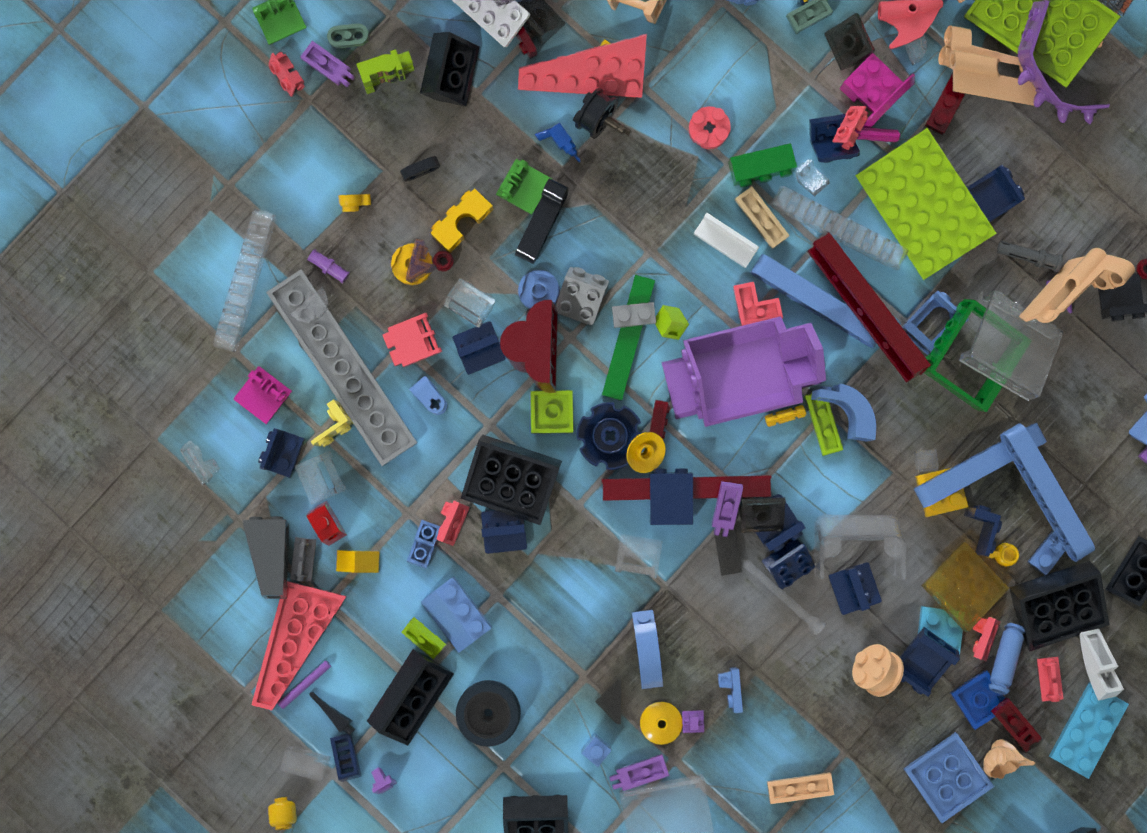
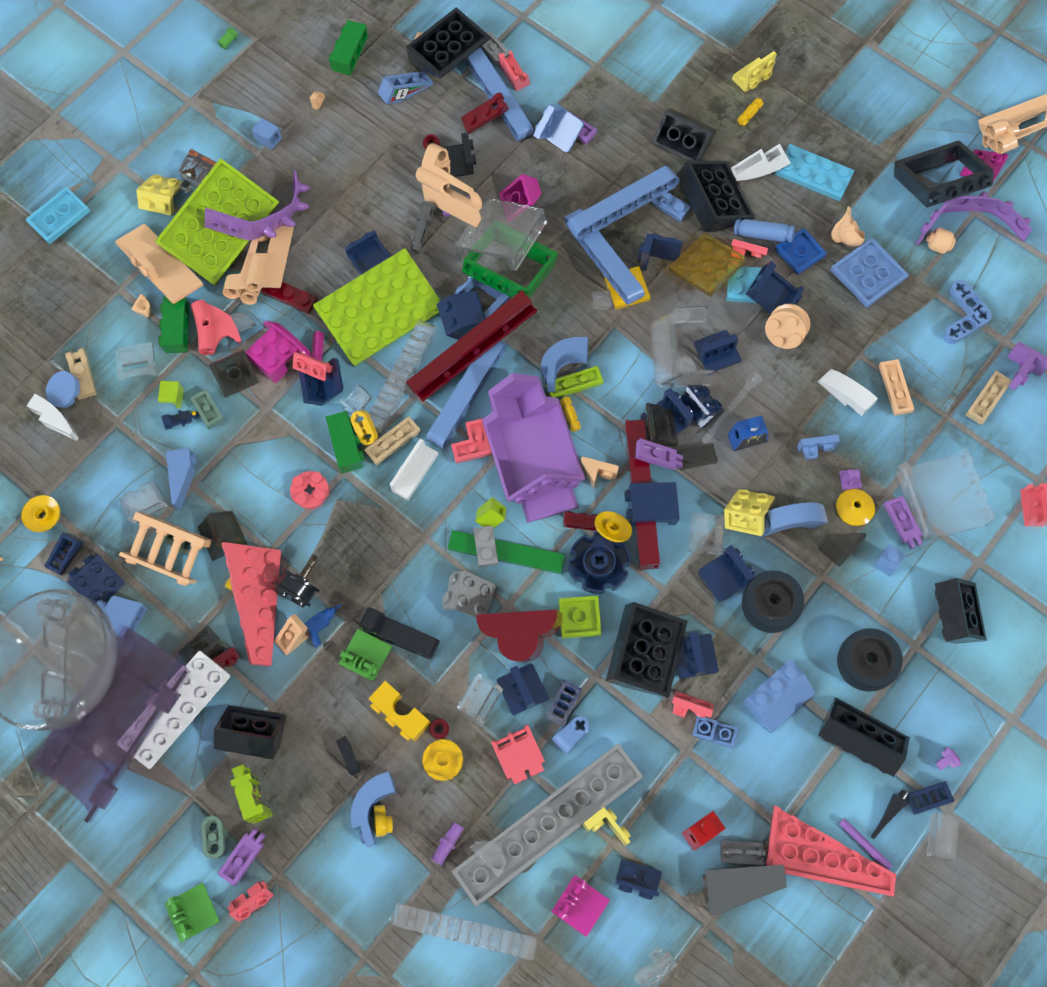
camera: 90 degrees left, 15 degrees down
(282, 814) = (996, 857): yellow head -> none
(314, 481) = (663, 845): clear plate -> none
(357, 561) = (738, 797): yellow slope -> none
(371, 183) = (369, 794): none -> medium blue arch
(417, 268) = (446, 751): slope -> none
(423, 638) = (806, 726): lime plate -> none
(477, 398) = (577, 690): none -> dark blue slope
(538, 286) = (464, 636): medium blue tile -> none
(548, 110) = (292, 634): none -> light nougat slope
(551, 633) = (776, 587): none -> wheel
(589, 571) = (726, 574): none -> dark blue bracket
(659, 602) = (747, 512): none -> light yellow bracket
(665, 36) = (221, 528): none -> clear smoke slope
(717, 436) = (594, 467): none -> light nougat slope
(750, 612) = (750, 432): none -> blue torso
(776, 185) = (364, 427): none -> yellow beam
(797, 731) = (848, 391): none -> white slope
(911, 297) = (460, 313): none -> dark blue slope
(1005, 554) = (677, 232): yellow piece -> none
(1016, 724) = (818, 222): dark red plate -> none
(1050, 679) = (776, 201): coral hinge -> none
(1069, 374) = (522, 191): none -> dark pink slope

